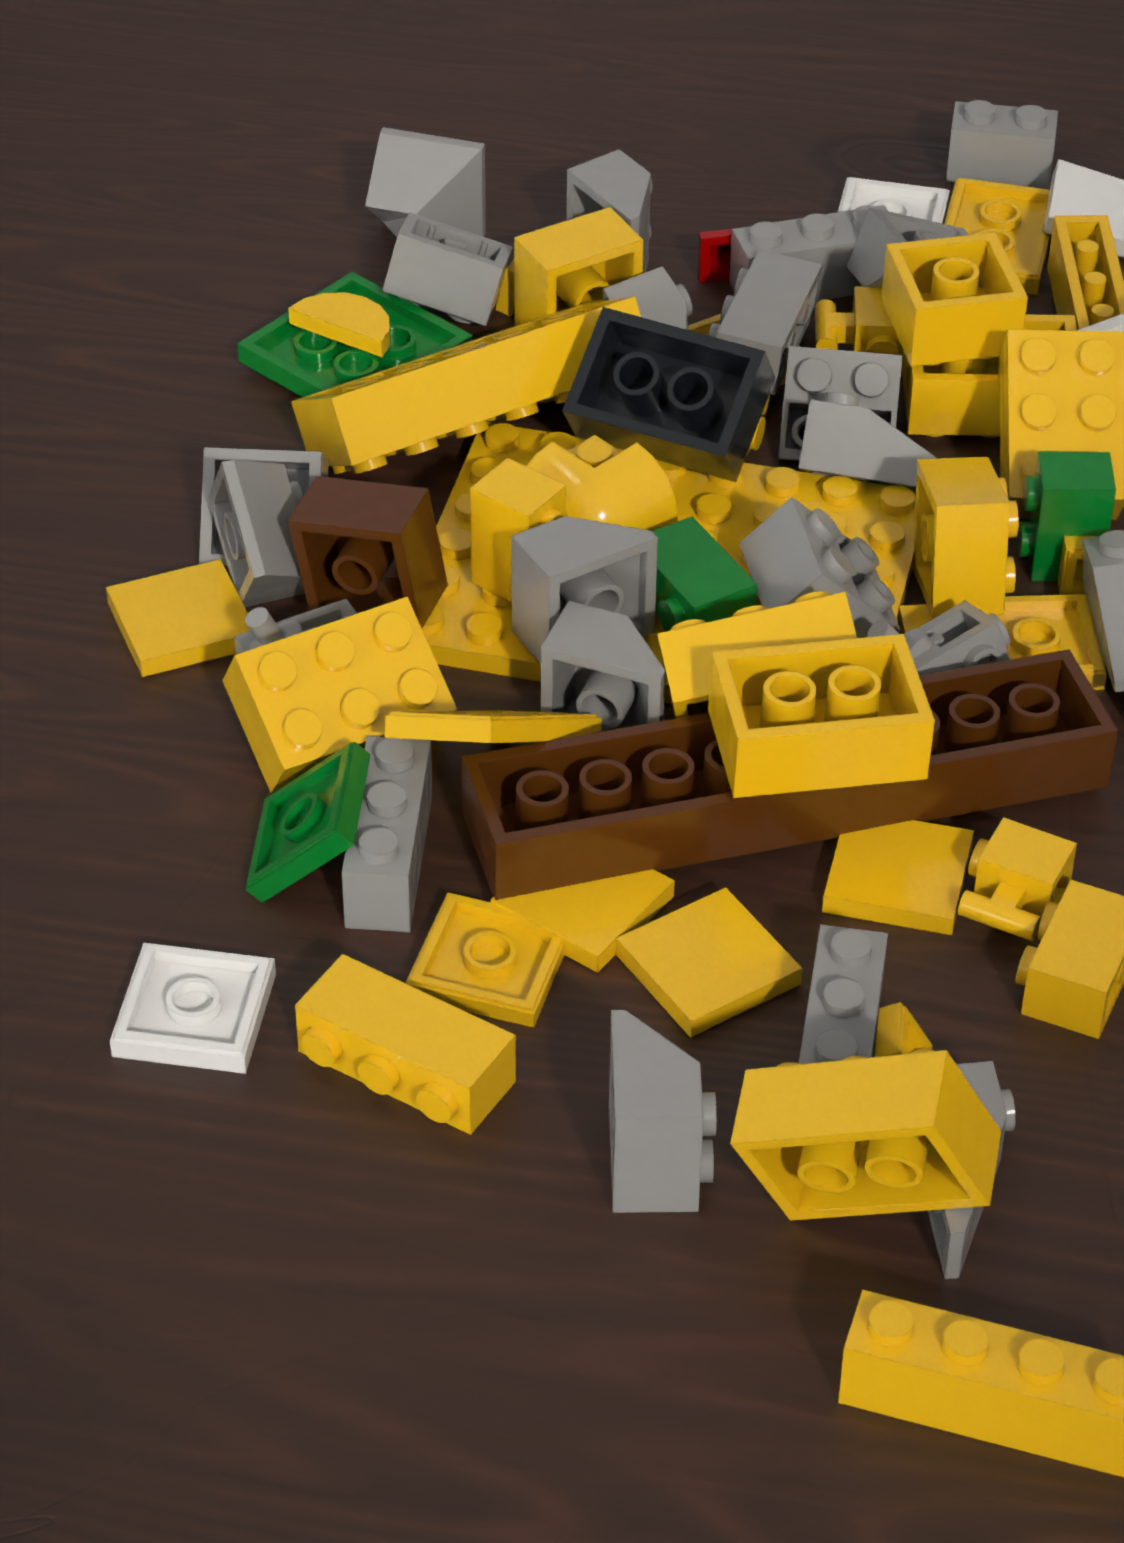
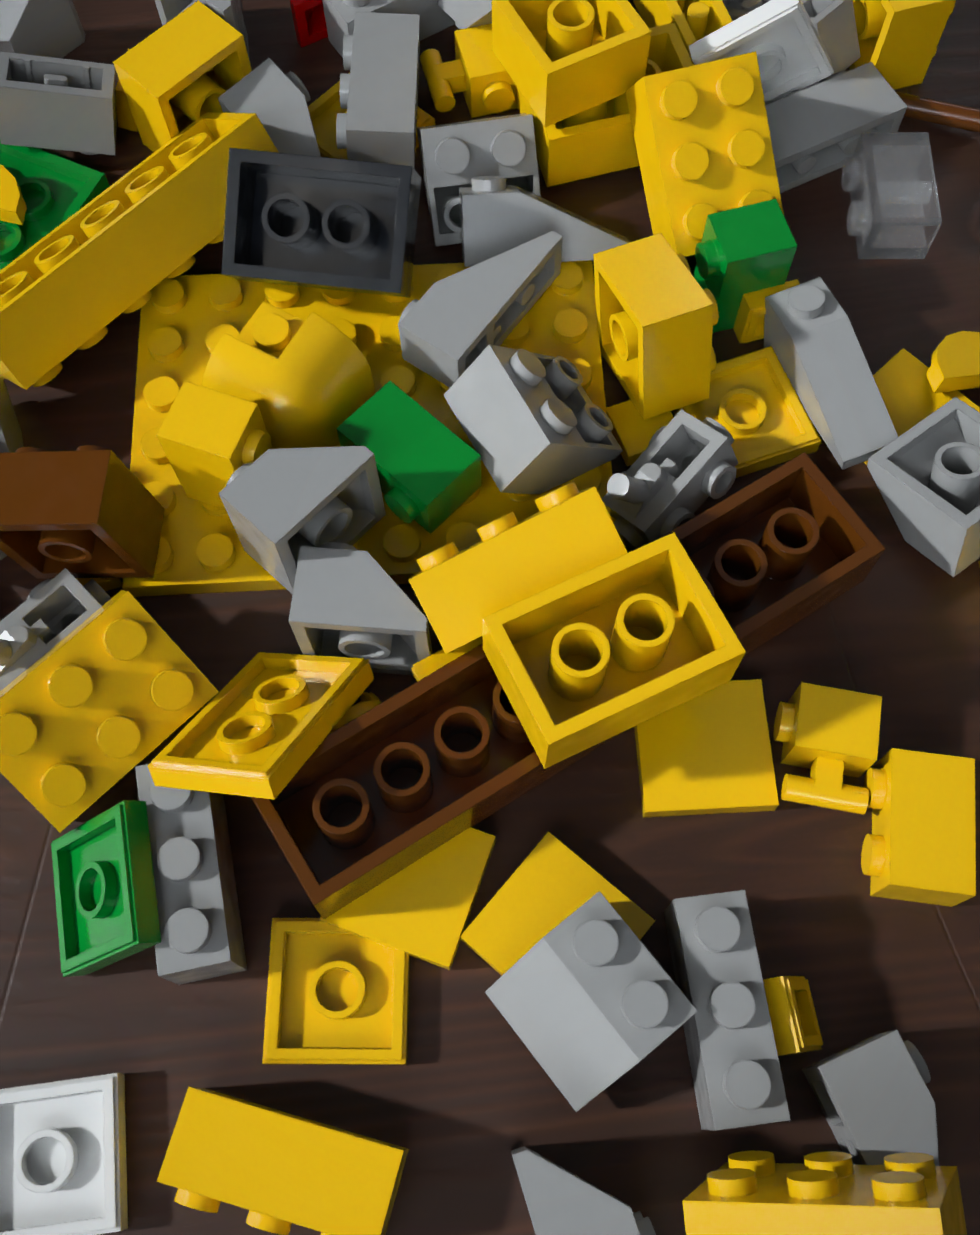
camera: 15 degrees left, 25 degrees up
(722, 982) = (589, 1001): none -> light grey slope
(827, 479) = (477, 307): none -> light grey slope

